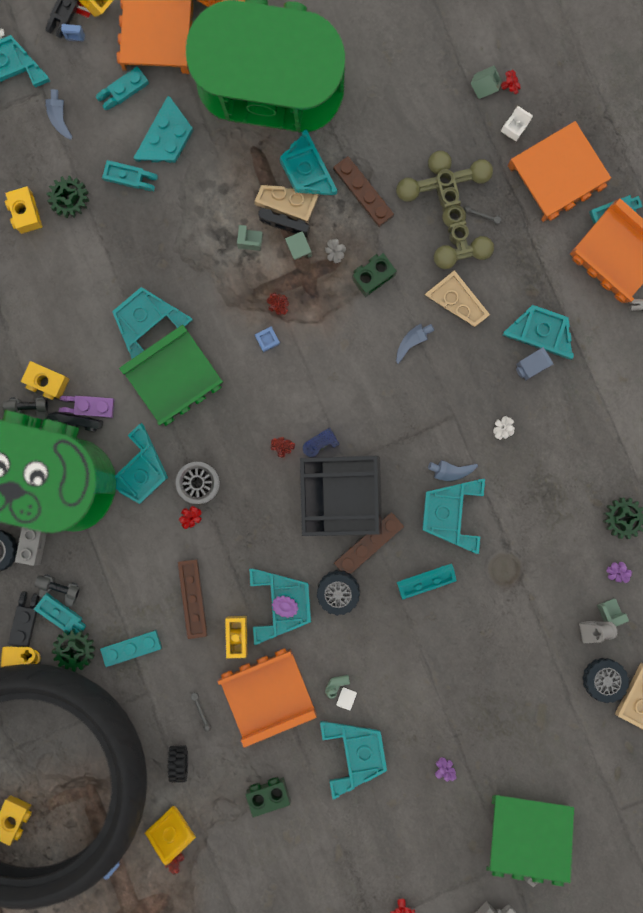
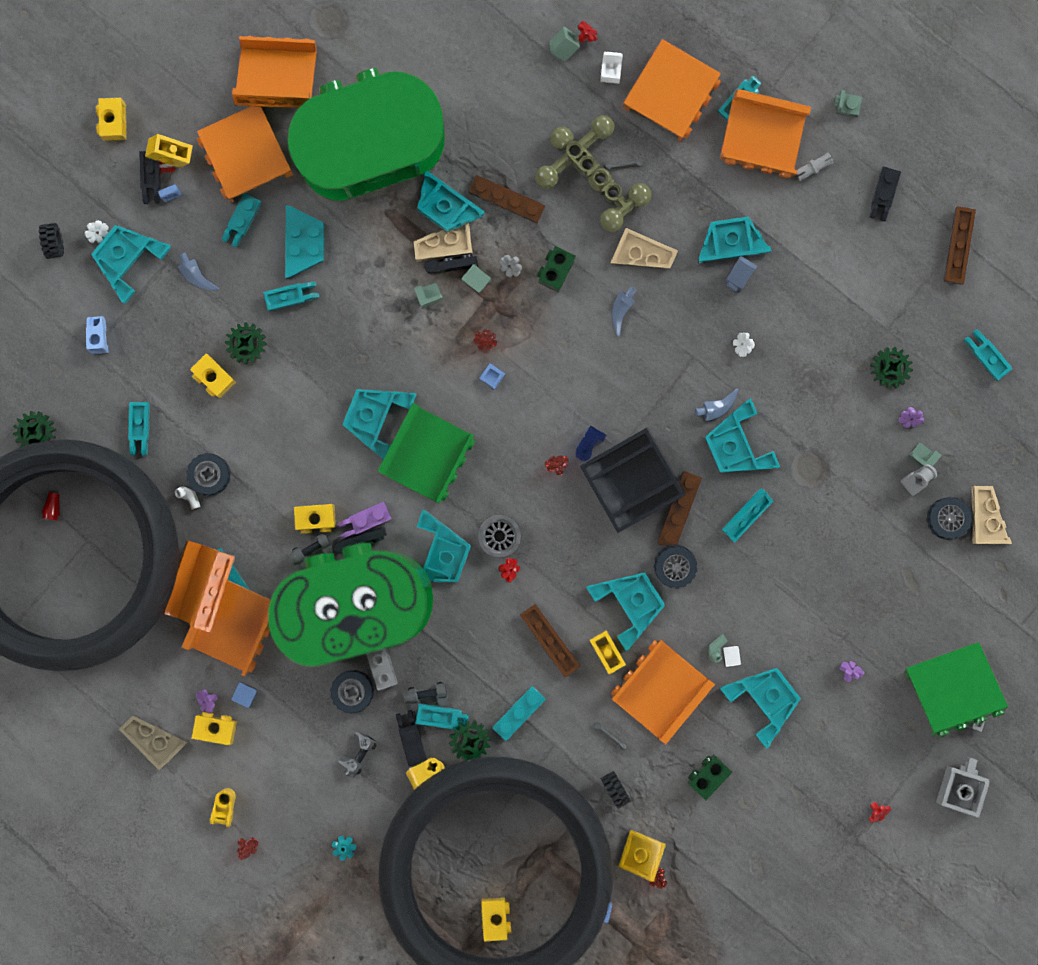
camera: 25 degrees left, 0 degrees up
(285, 606) = (635, 602): medium lavender piece -> none

